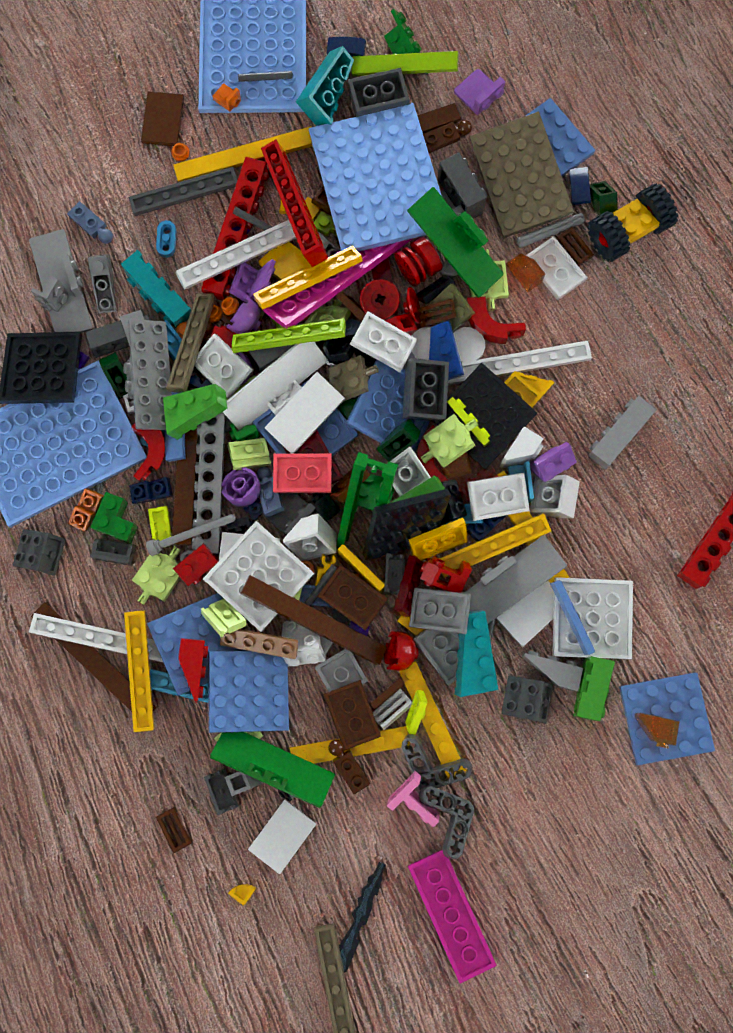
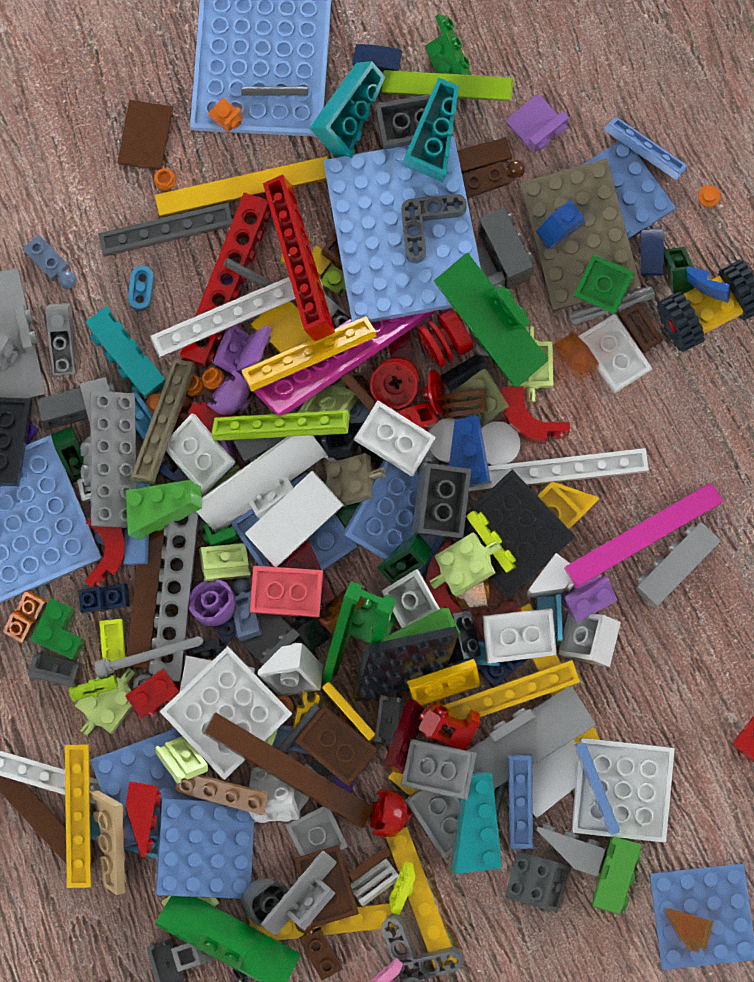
camera: 10 degrees right, 0 degrees up
(146, 563) = (93, 688): none -> lime pin
(168, 690) = (111, 840): none -> tan wing
(302, 731) = (262, 898): none -> dark grey cylinder
(335, 726) = (304, 898): none -> light grey bracket
(393, 162) = (423, 214): none -> dark grey beam
(396, 102) = (432, 138): none -> teal wedge
(506, 164) = (560, 224): none -> blue slope
(509, 633) = (520, 801): none -> medium blue tile
(544, 210) = (604, 284): none -> green plate
(567, 105) = (645, 148): none -> medium blue tile
(592, 409) = (643, 535): none -> dark pink tile
(621, 140) = (709, 196): none -> orange plate
(635, 206) = (701, 281): none -> blue slope

